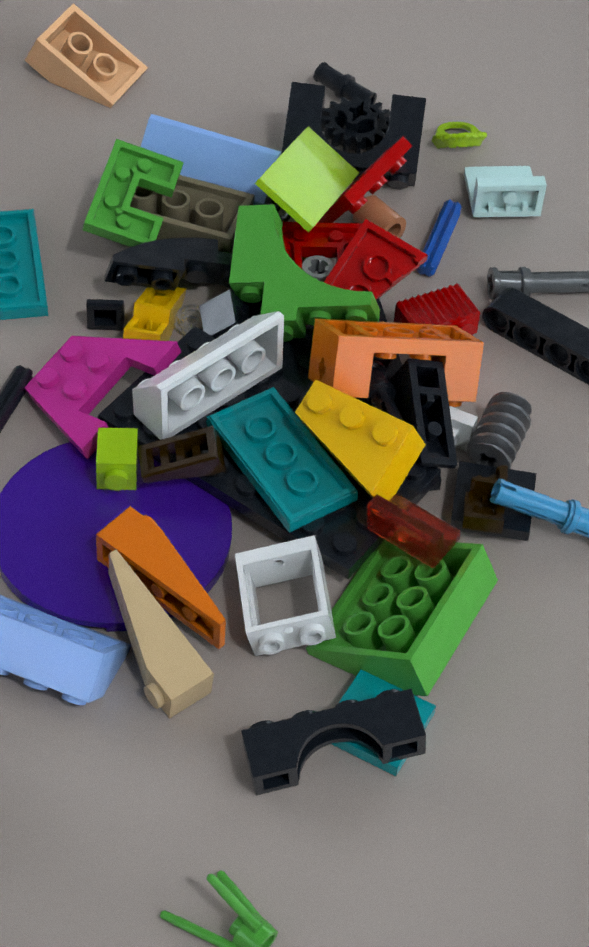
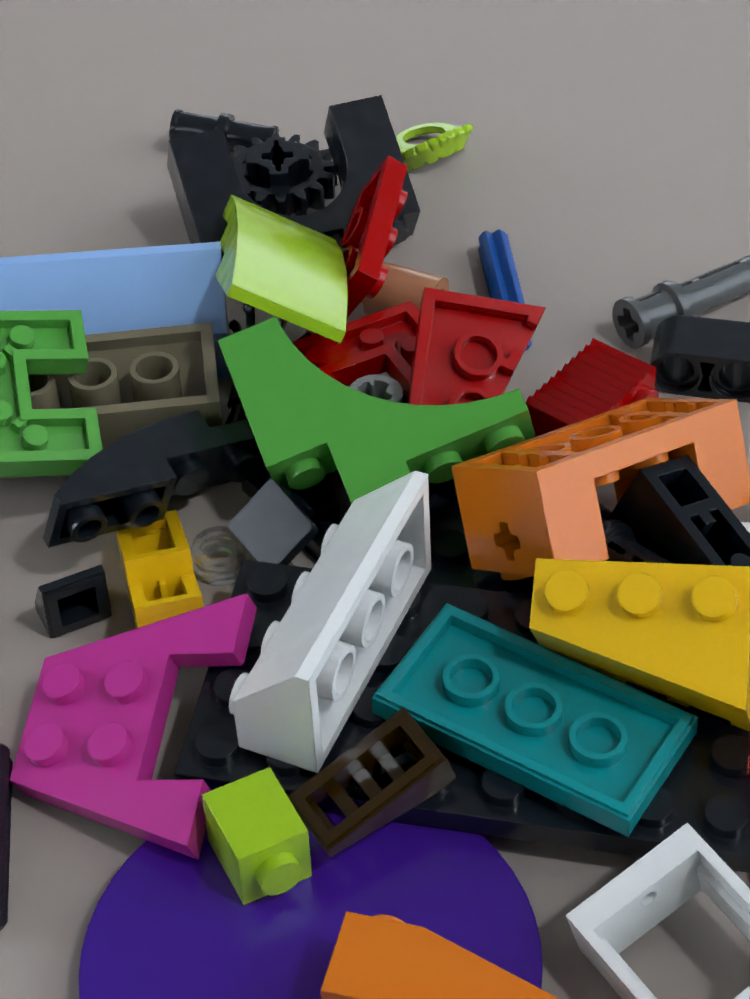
camera: 20 degrees left, 5 degrees down
(504, 191) = (554, 191): light aqua bracket -> none

